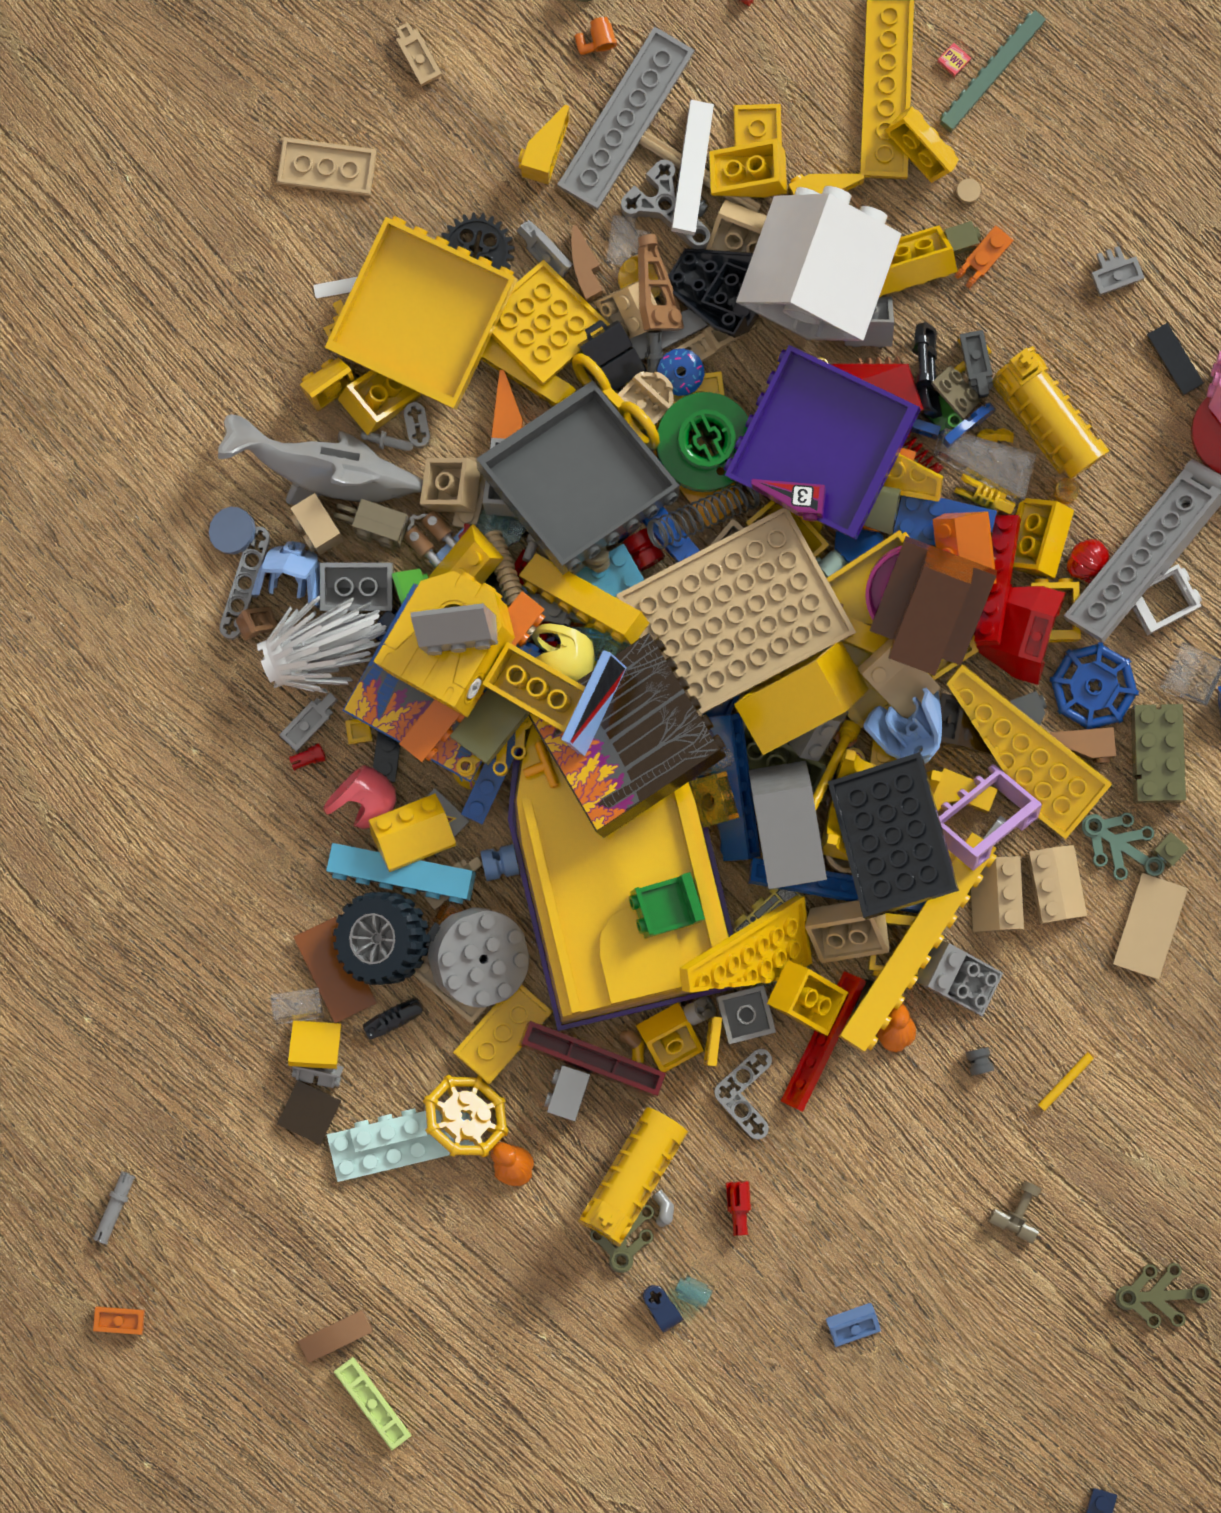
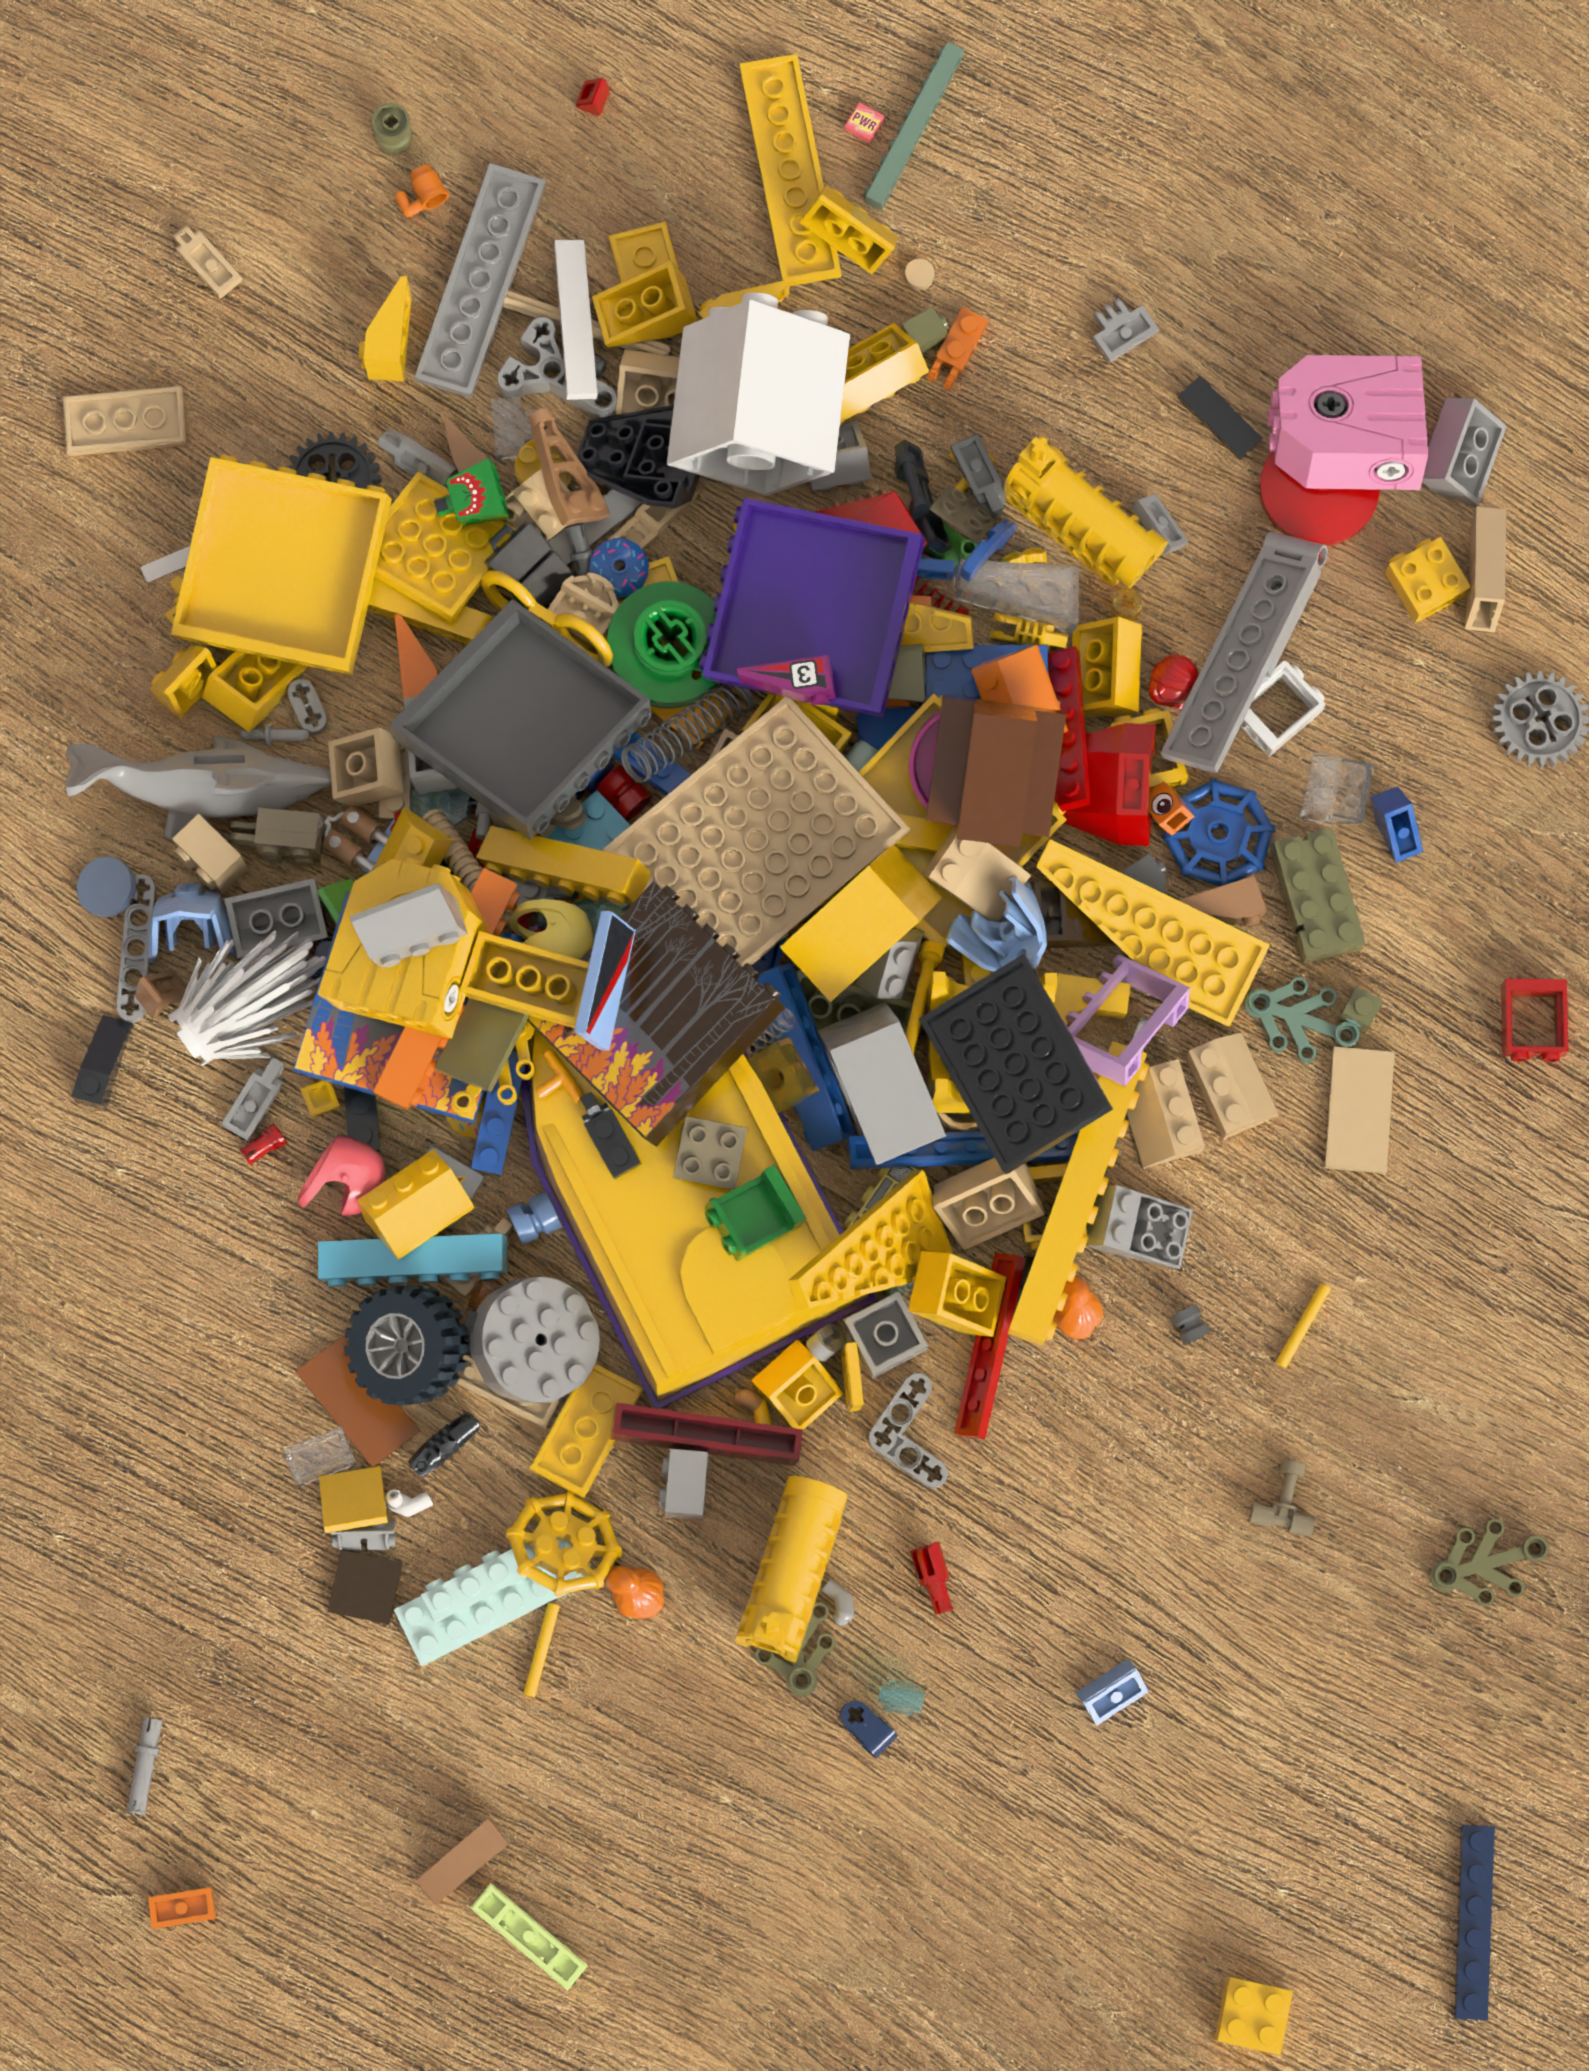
camera: 15 degrees left, 5 degrees down
(199, 665) = (102, 1063): none -> black slope
(354, 1058) = (406, 1505): none -> white arm
(430, 1191) = (541, 1650): none -> yellow bar
(570, 820) = (609, 1137): none -> black hinge
(582, 291) = (474, 495): none -> green torso
(643, 850) = (710, 1152): none -> dark tan hinge
(1059, 659) = (1168, 808): none -> orange brick
(1107, 430) = (1155, 516): none -> light grey plate

